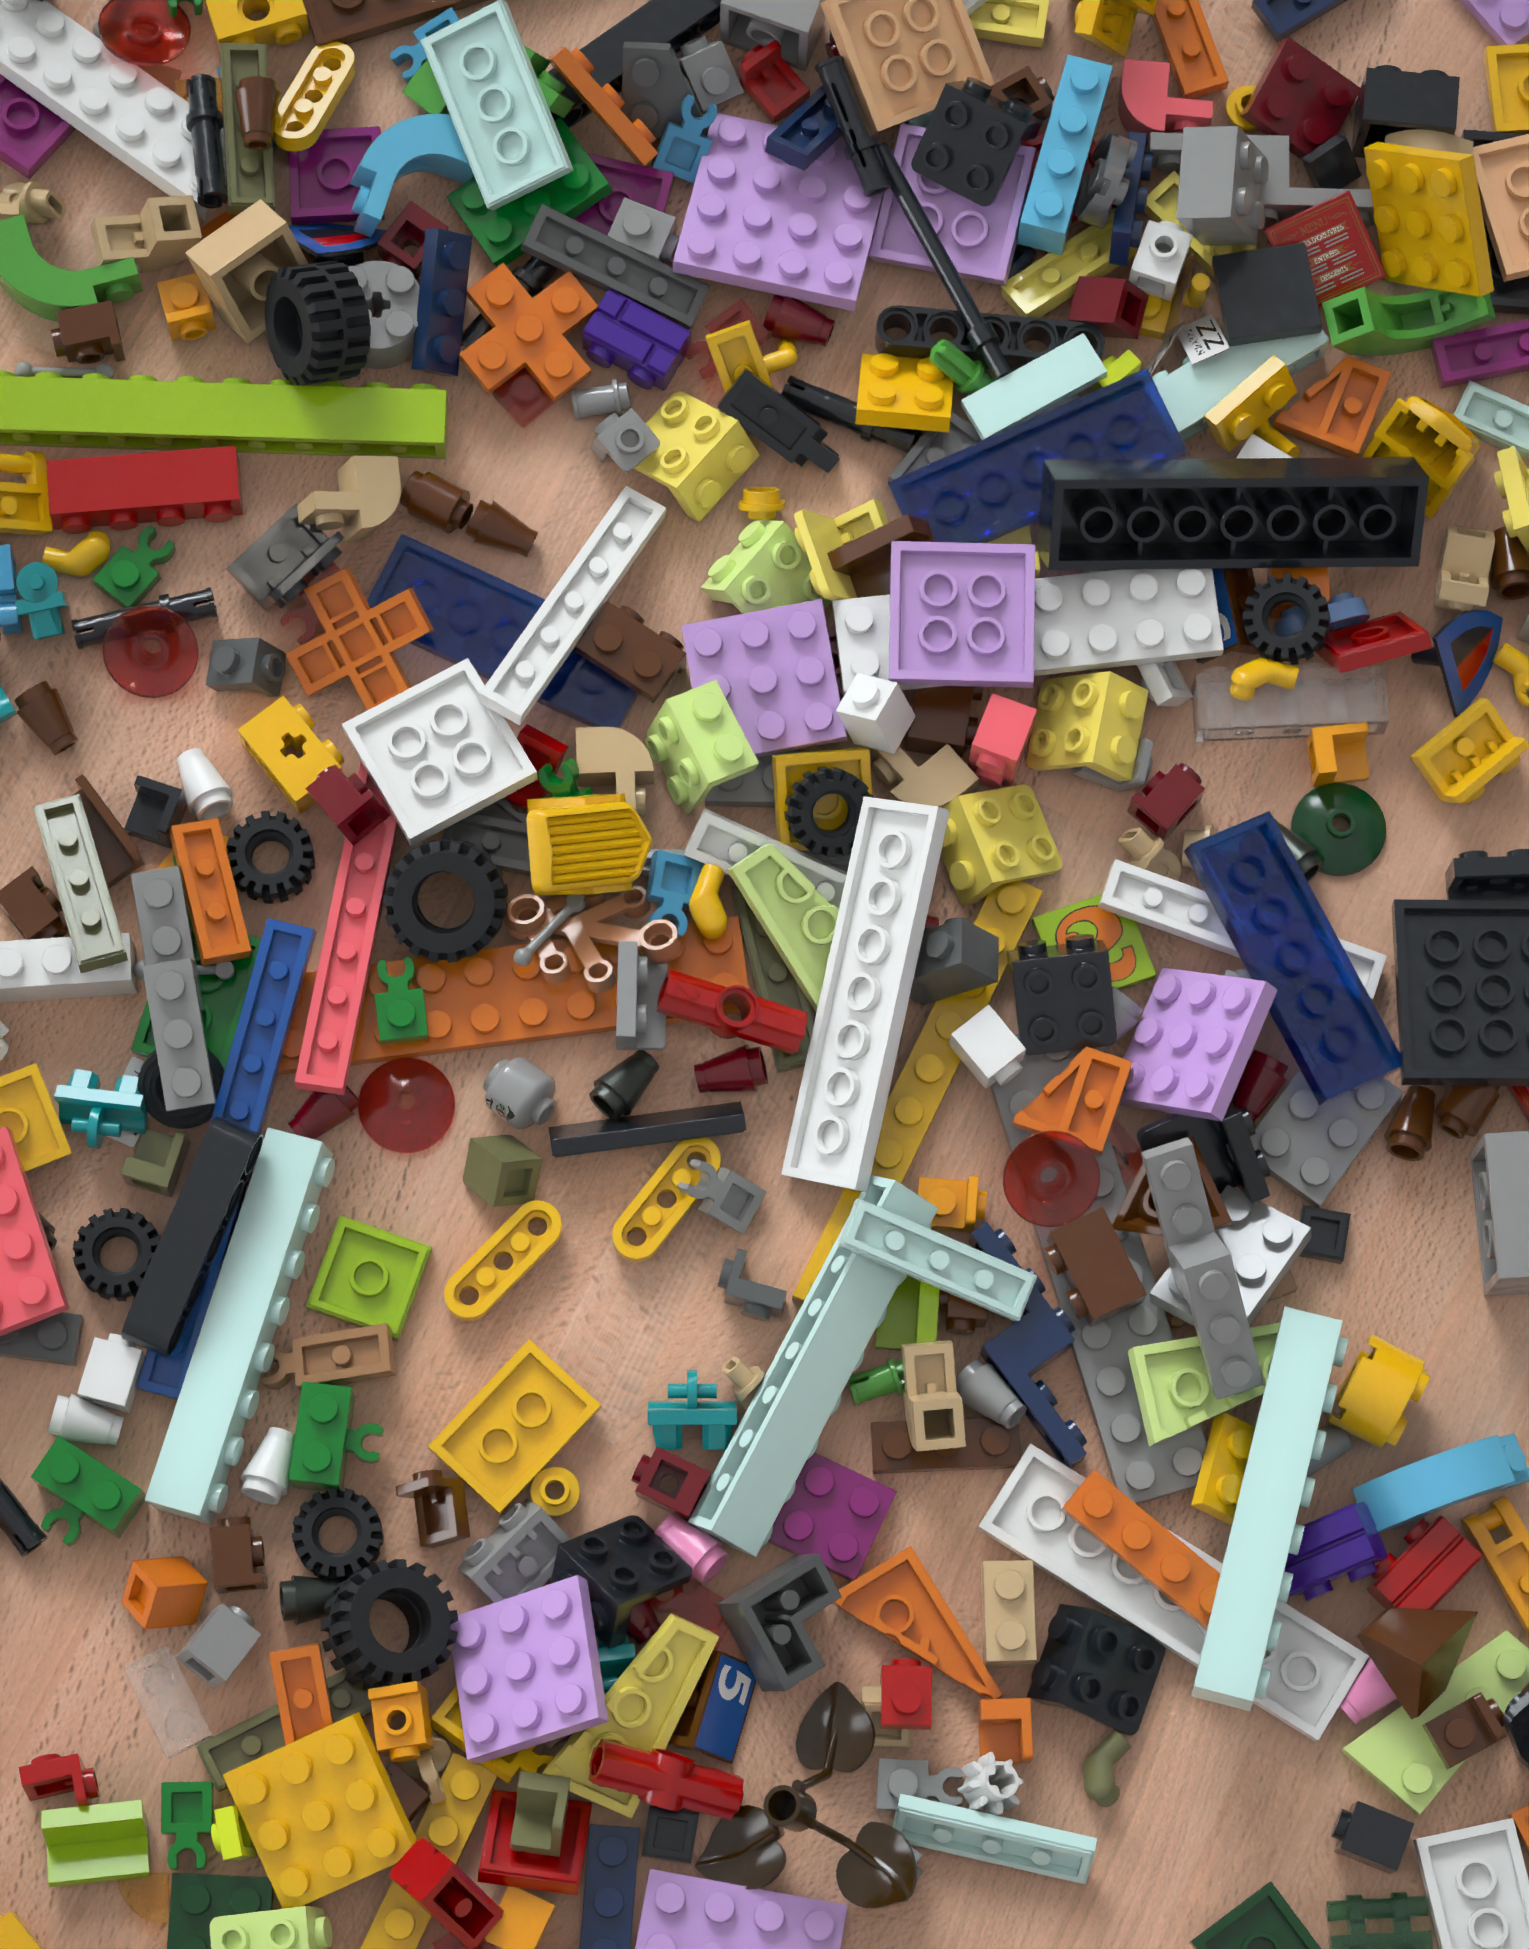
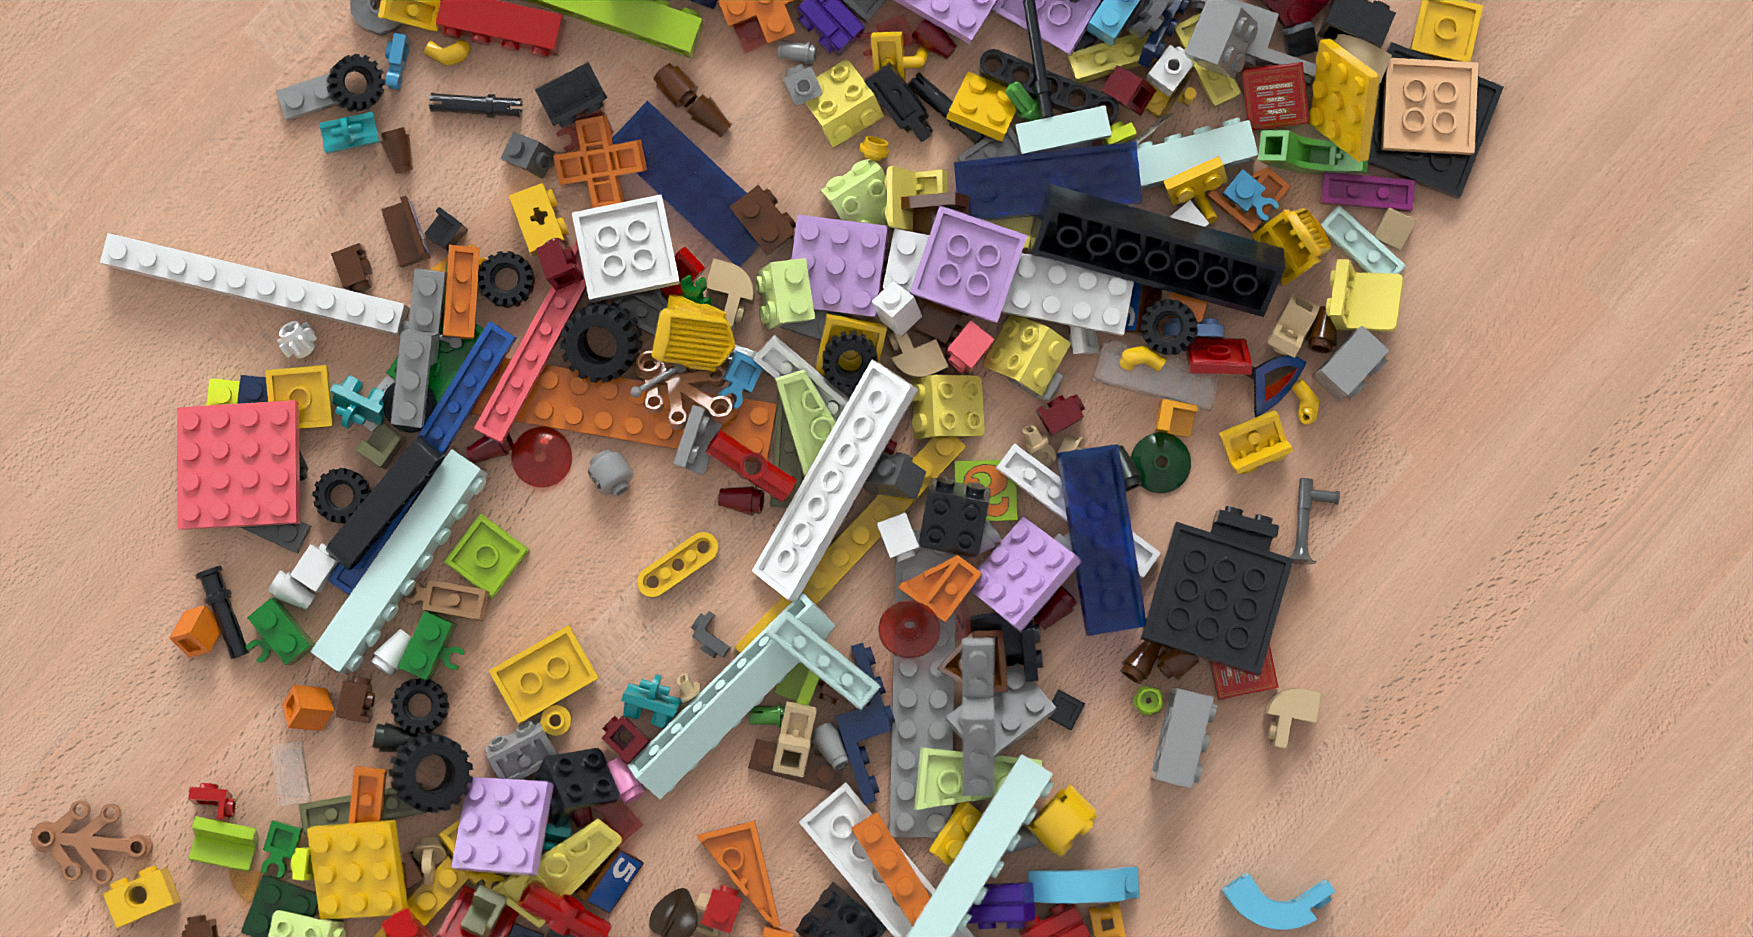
camera: 20 degrees right, 10 degrees up
(42, 602) = (414, 78): teal hips -> none
(80, 883) = (383, 263): tile -> none
(131, 575) = (475, 74): green plate -> none
(146, 672) = (467, 138): clear red dish -> none
(203, 786) = (479, 222): white cone -> none
(219, 1644) = (329, 750): light grey brick -> none
(364, 501) = (633, 73): tan brick -> none
(400, 1010) = (553, 401): green plate -> none
(416, 1734) = (429, 826): light orange brick -> none
(438, 1506) = (483, 710): reddish brown bracket -> none
(502, 1170) = (585, 516): olive panel -> none
(512, 1240) = (554, 573): yellow plate -> none
(572, 605) = (736, 180): white plate -> none
(623, 1085) = (674, 487): pearl dark grey cone -> none
(647, 1129) = (679, 519): black tile -> none
(706, 904) = (756, 393): yellow arm -> none
(725, 1195) = (712, 575): light grey plate -> none
(769, 1619) = (656, 837): dark grey brick -> none
(832, 1515) = (715, 787): magenta plate -> none
(957, 1202) = (848, 620): light orange bracket -> none
(1008, 1613) = (798, 880): tan brick -> none
(1094, 1267) = (917, 690): reddish brown brick -> none
(1202, 339) = (1180, 128): white sticker -> none
(1266, 294) = (1228, 114): black tile -> none
(1316, 1144) = (1078, 657): light grey plate -> none
(1331, 399) = (1246, 193): none -> dark azure plate
(1452, 1172) = (1156, 700): none -> lime plate

